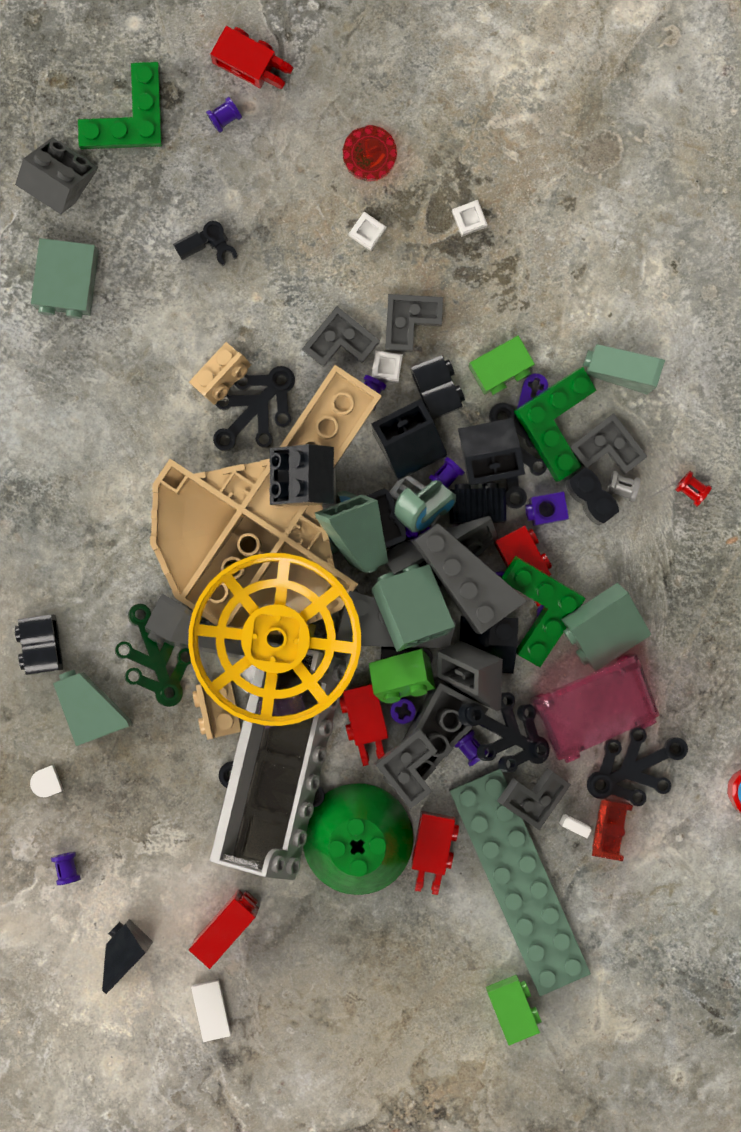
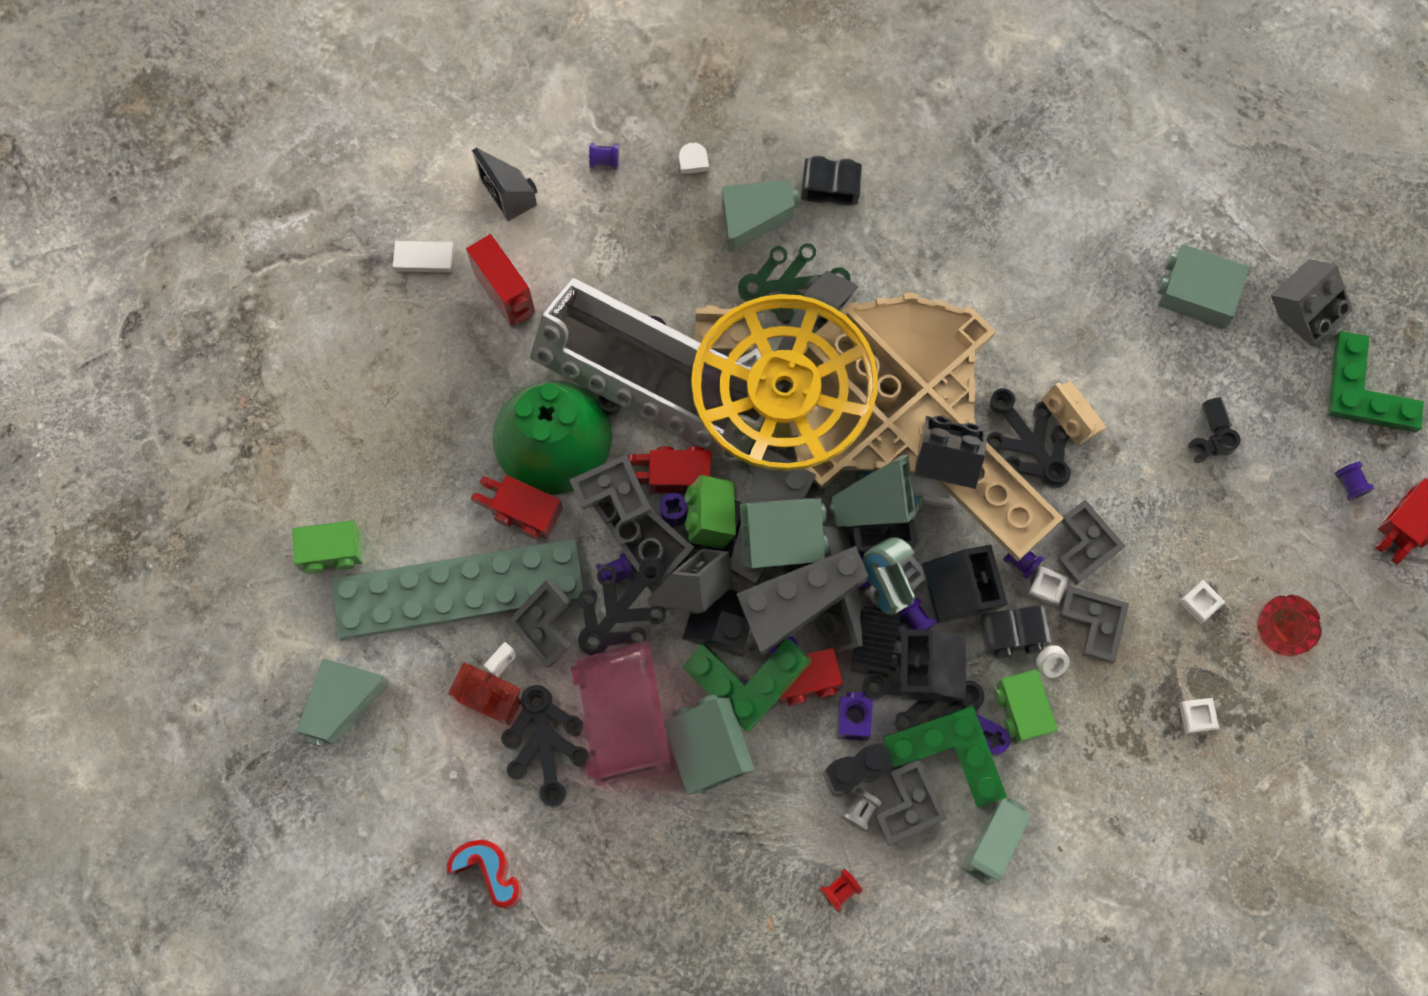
camera: 105 degrees right, 15 degrees down
(456, 350) = (1052, 661): none -> white tile
(645, 957) = (337, 701): none -> sand green slope

